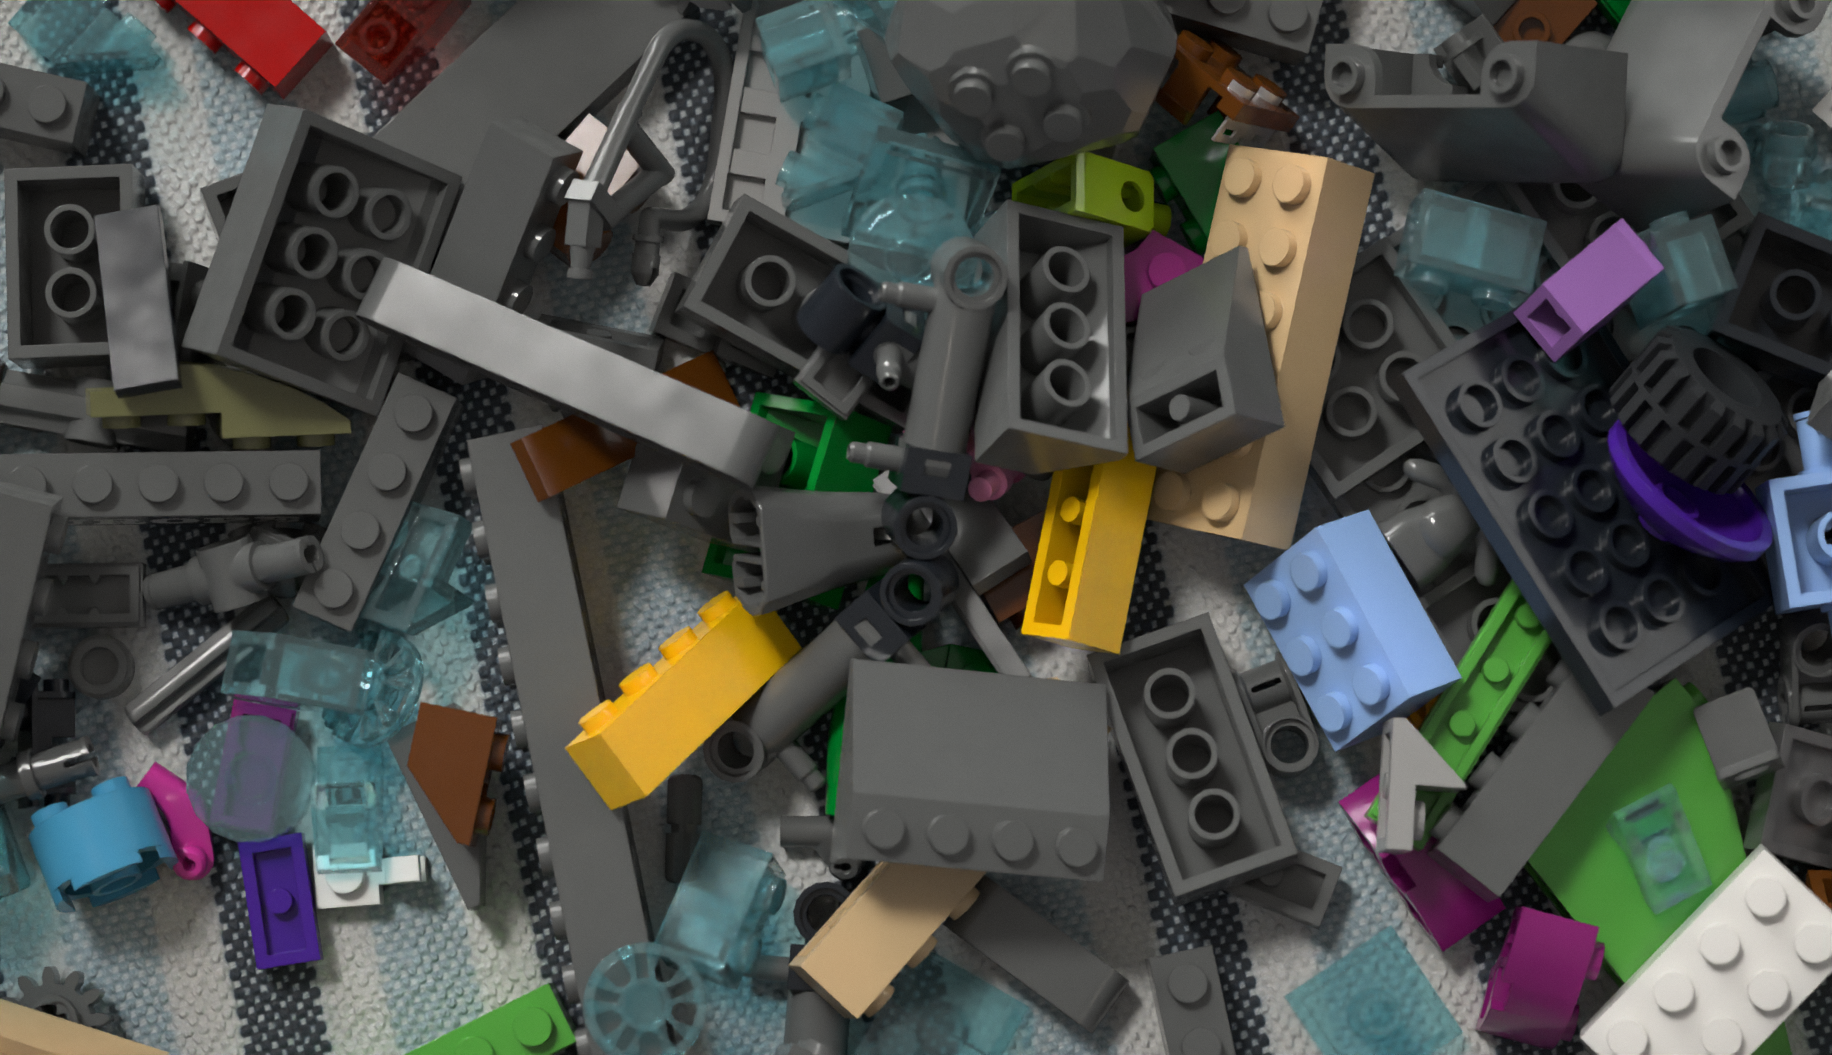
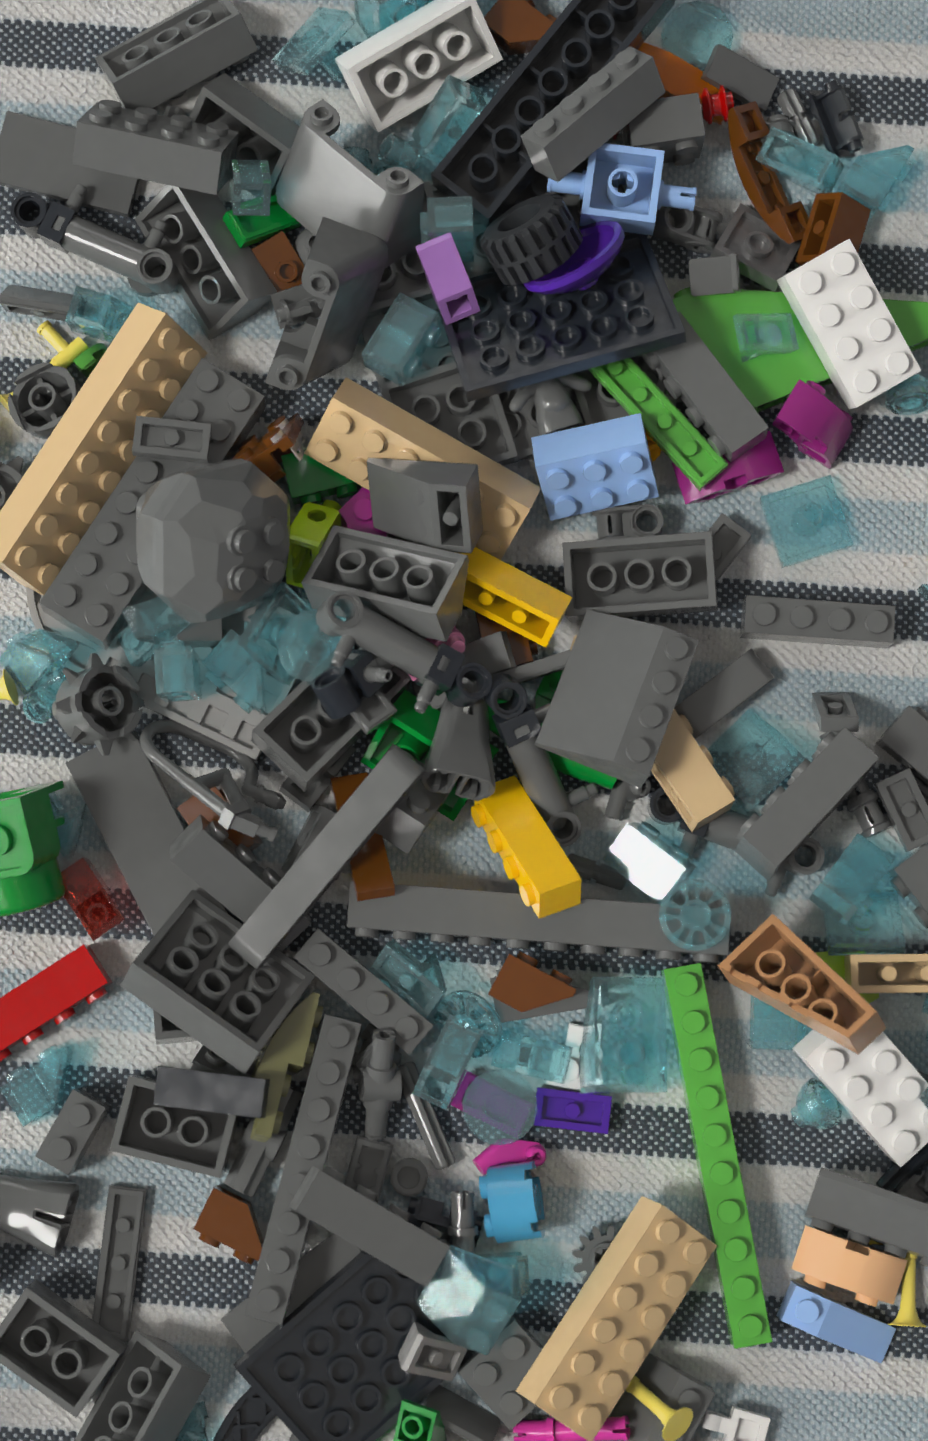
camera: 70 degrees left, 0 degrees up
(420, 950) = (624, 1037): none -> clear light blue slope
(1407, 766) = (681, 458): light grey slope -> none

